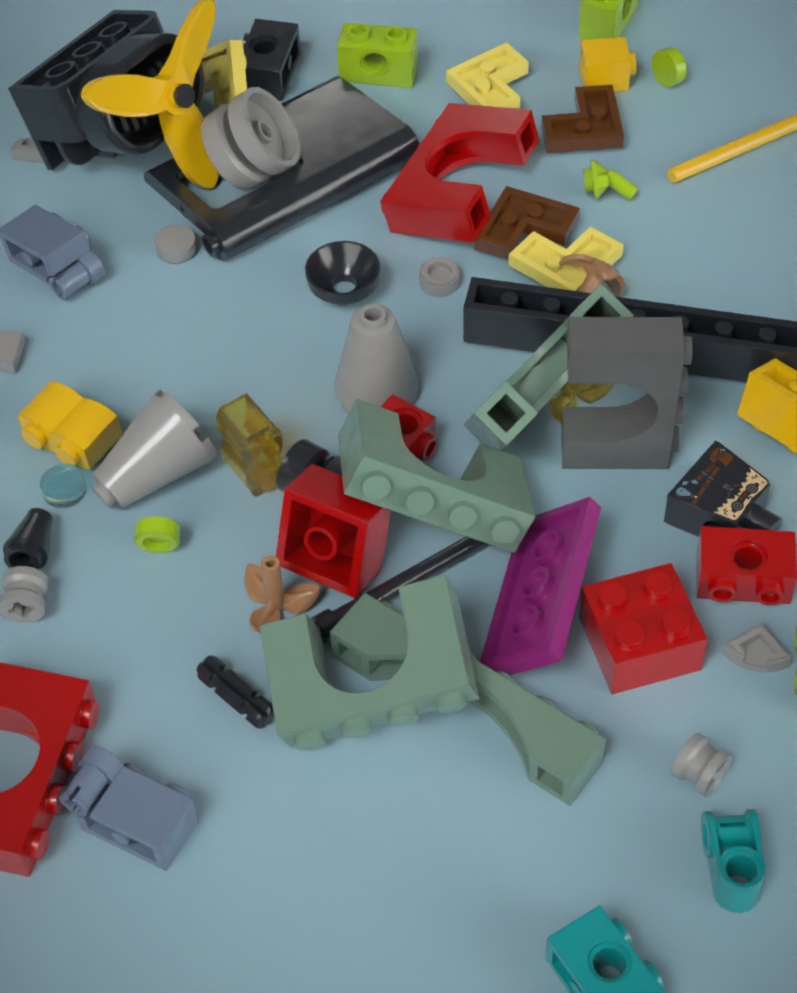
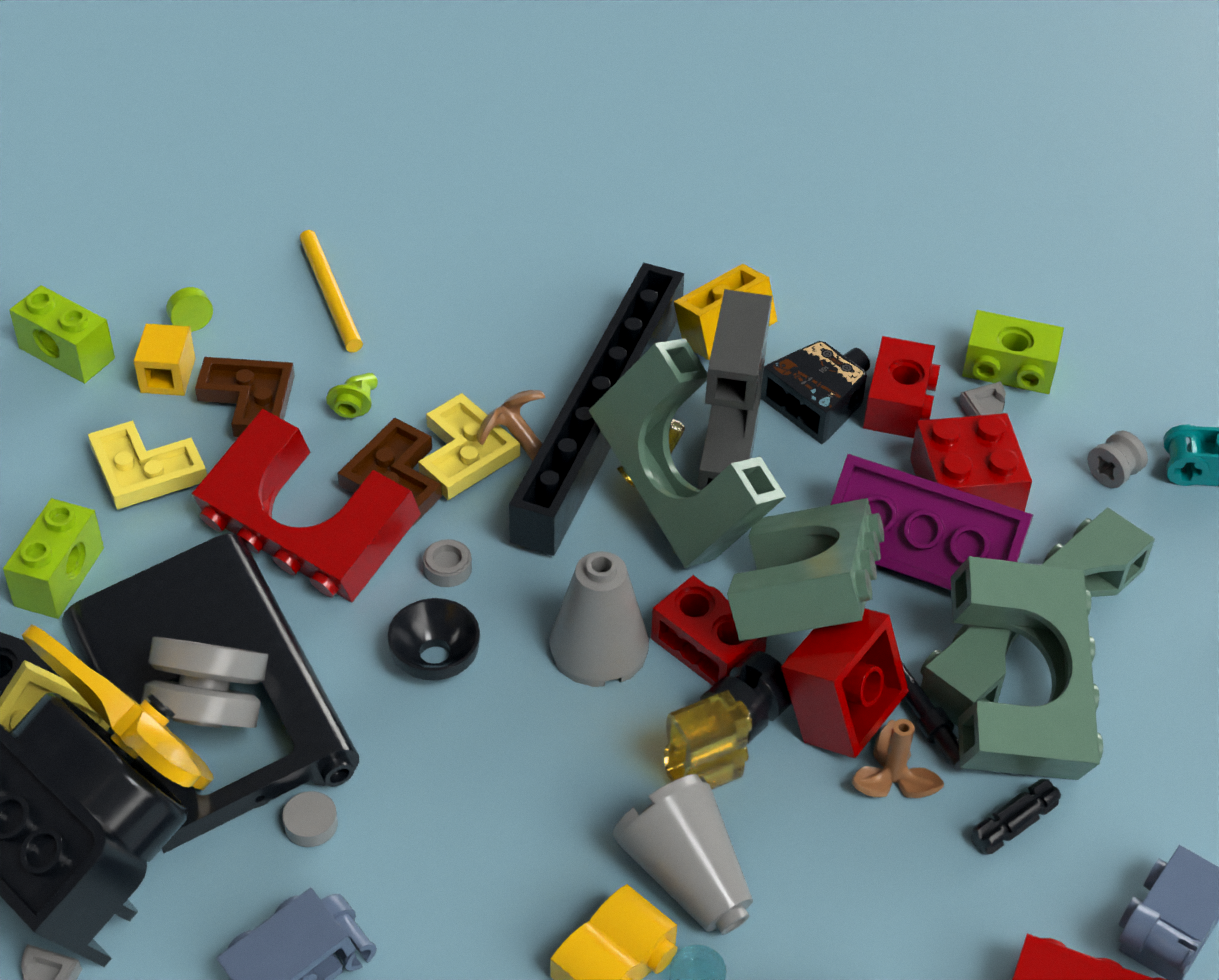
camera: 85 degrees left, 5 degrees down
(157, 534) = (802, 868): lime tile -> none

